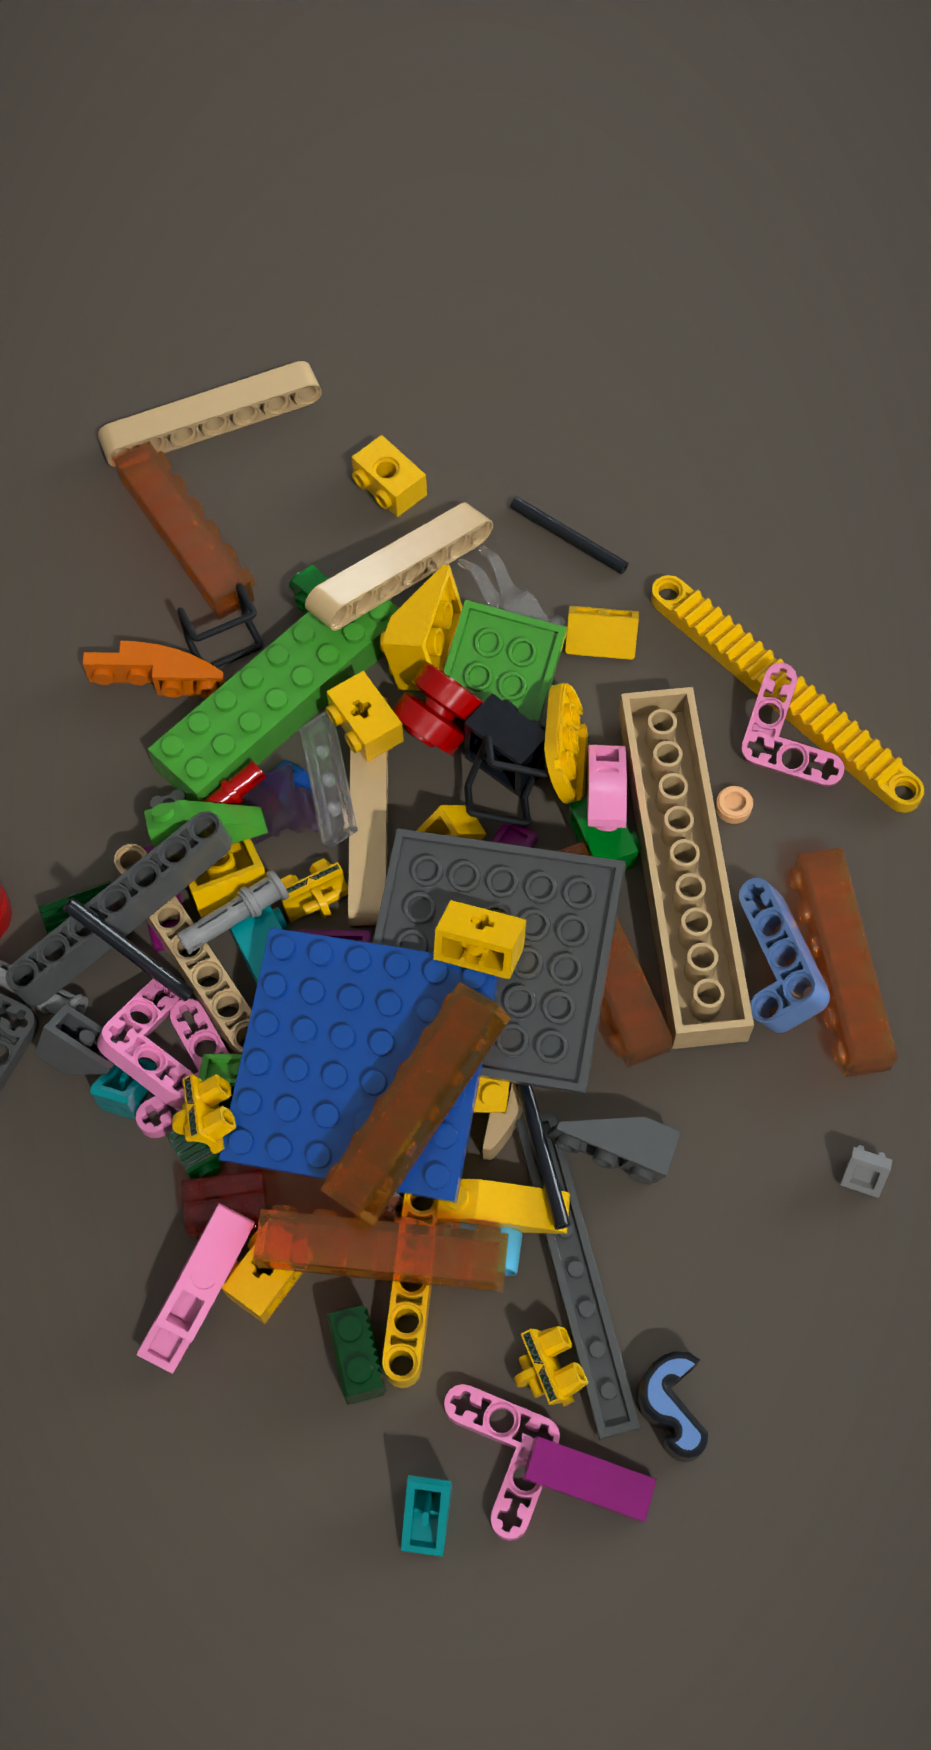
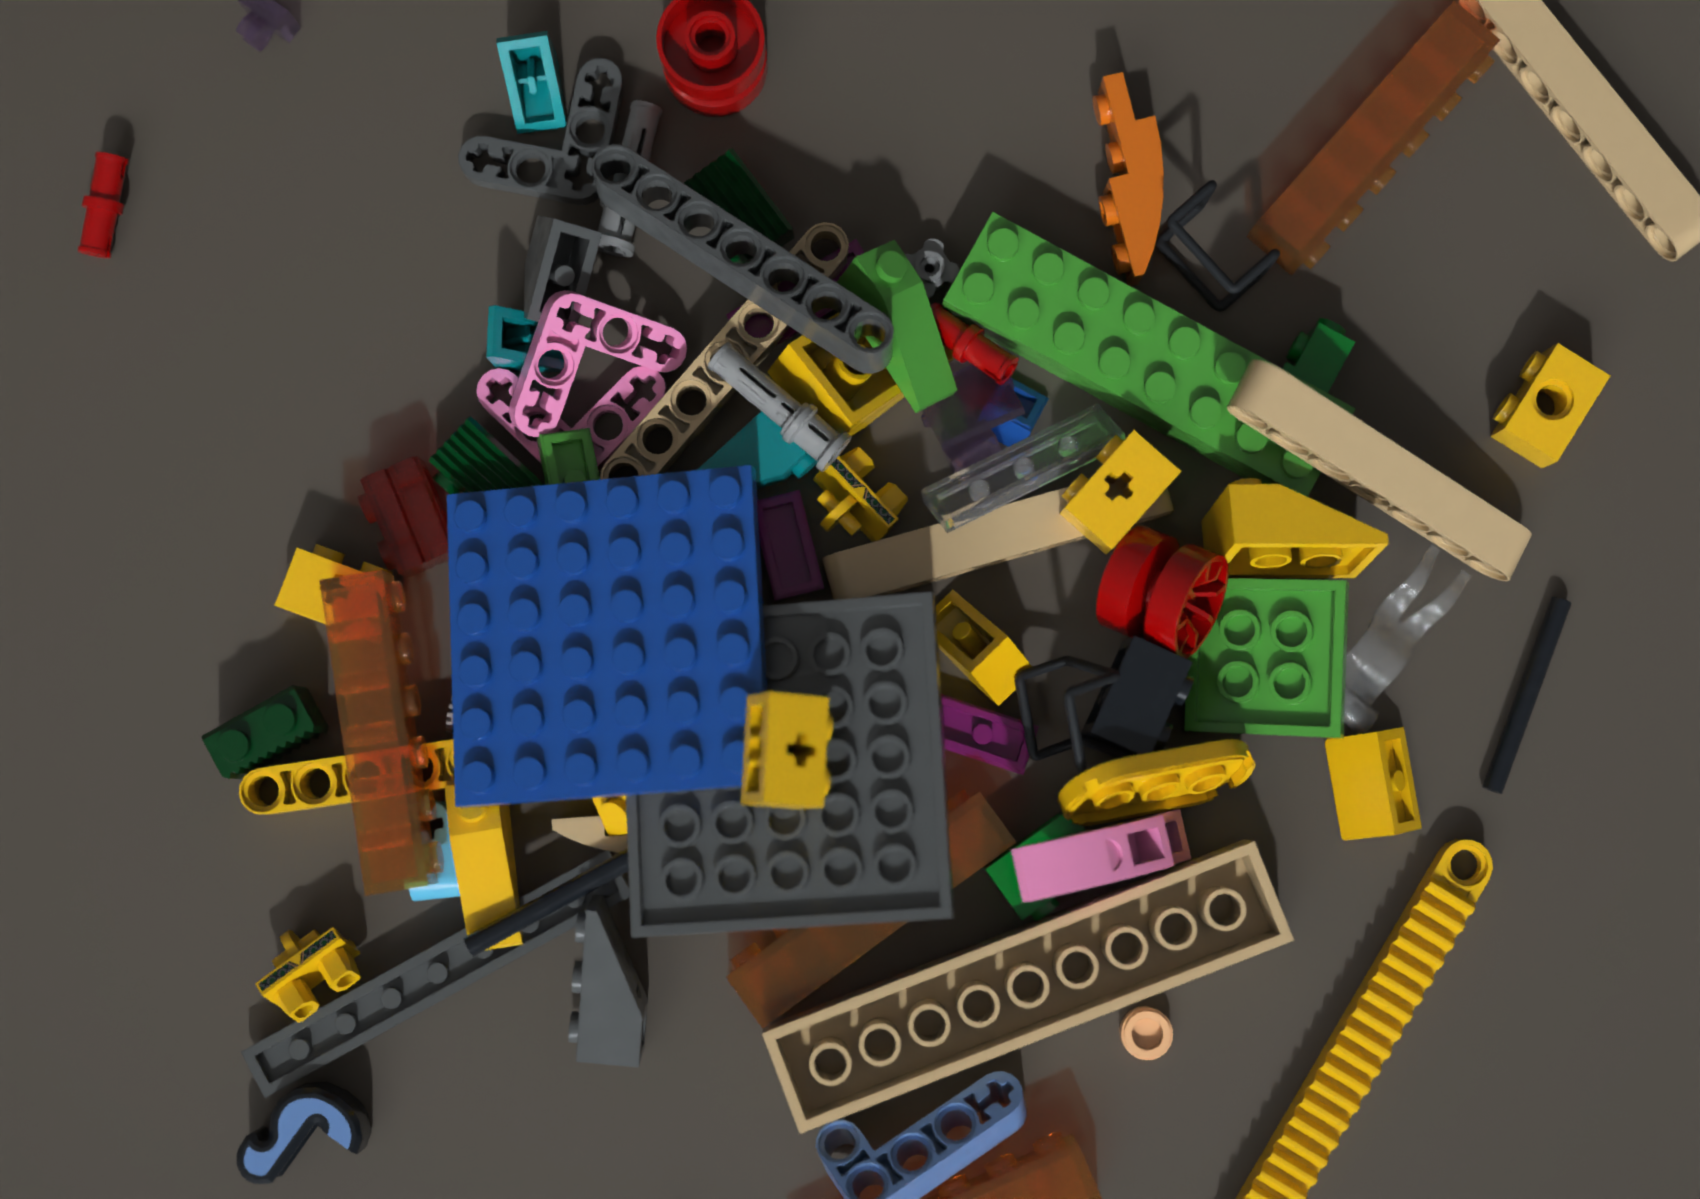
camera: 75 degrees right, 20 degrees up
(128, 949) = (684, 287): black piece -> none
(196, 1288) = (292, 520): bright pink slope -> none
(200, 1114) = (493, 456): yellow hips -> none
(415, 1103) = (548, 728): clear orange brick -> none
(426, 1515) = (110, 867): teal slope -> none
(519, 1458) = (206, 964): bright pink beam -> none
(589, 1479) = (191, 1050): magenta tile -> none
(771, 732) = (1266, 1063): bright pink beam -> none

